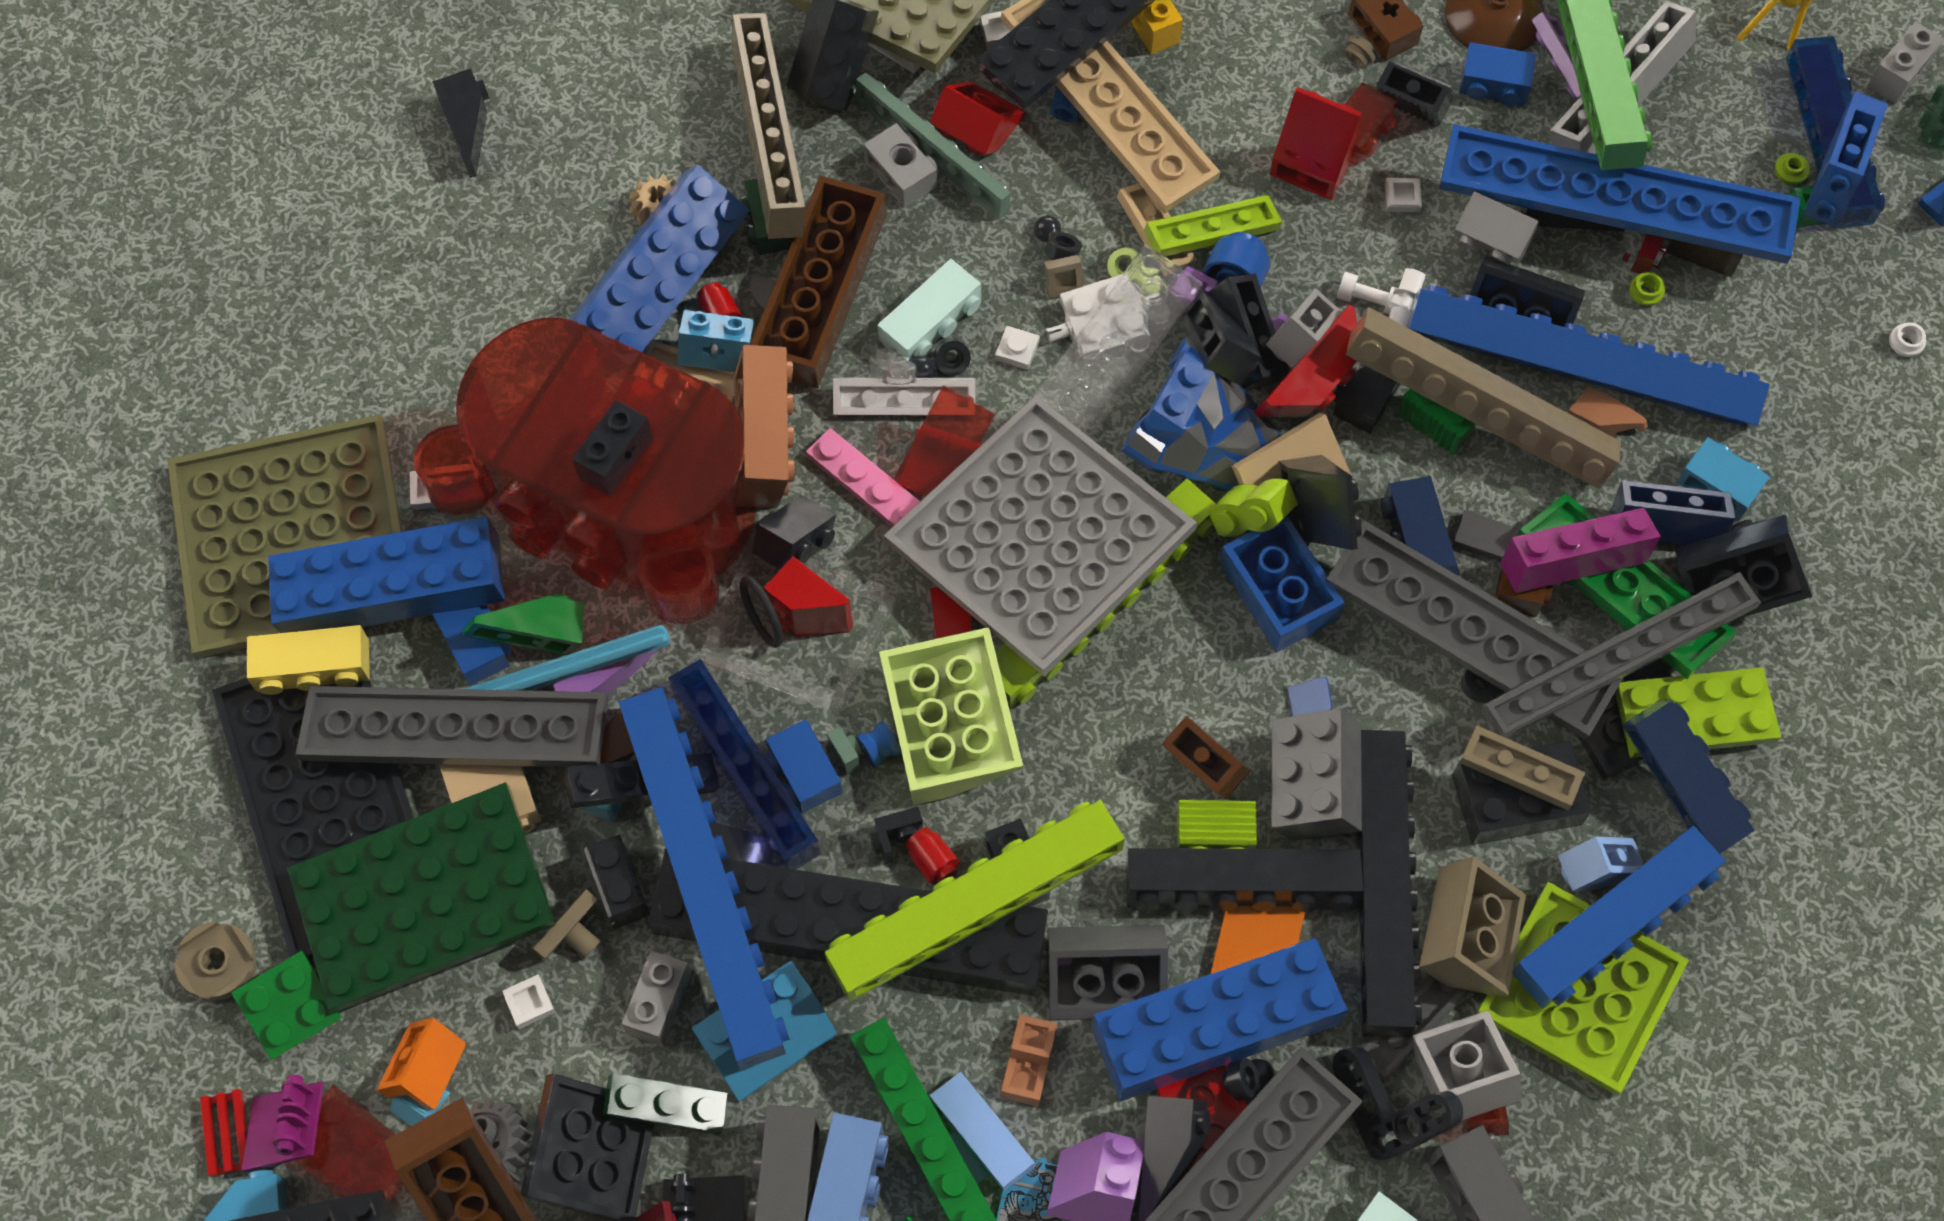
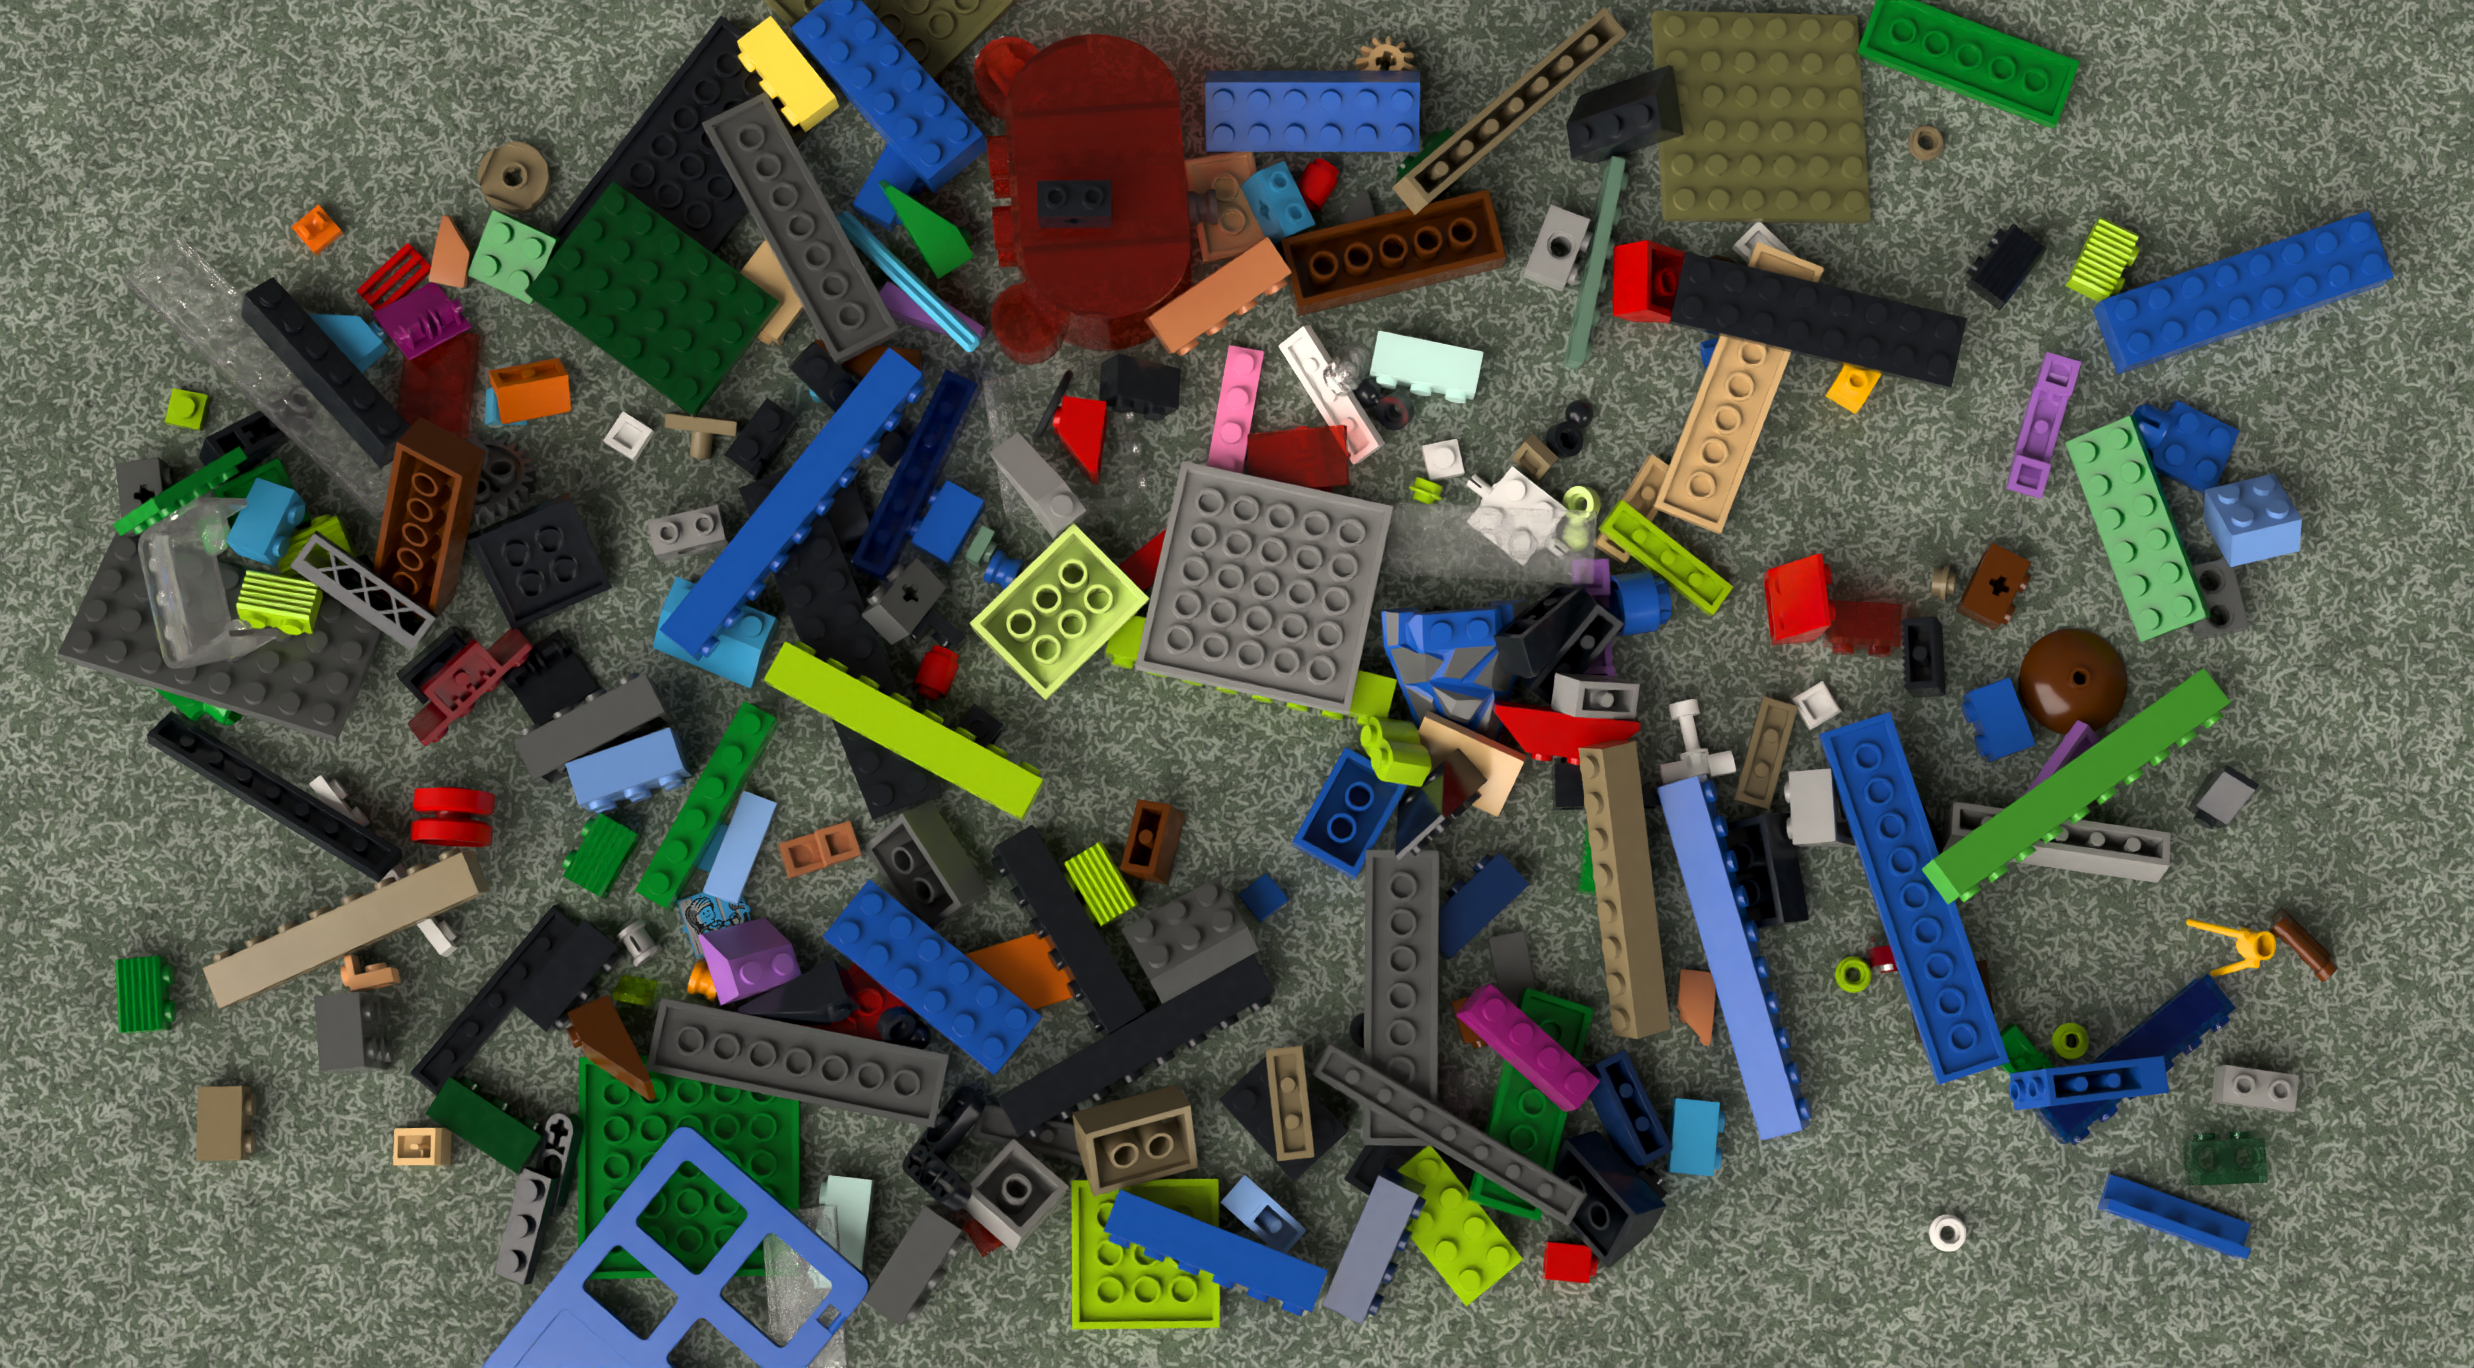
camera: 55 degrees right, 15 degrees up
(123, 1178) = (317, 230): none -> orange tile
(243, 1064) = (450, 256): none -> nougat slope
(664, 1104) = (610, 594): plate -> none
(826, 661) = (1038, 485): none -> light grey slope
(850, 839) = (902, 600): none -> dark grey brick
(1035, 372) = (1426, 491): none -> lime plate
(1421, 248) = (1765, 753): none -> dark tan plate
(1782, 637) = (1568, 1262): none -> red brick

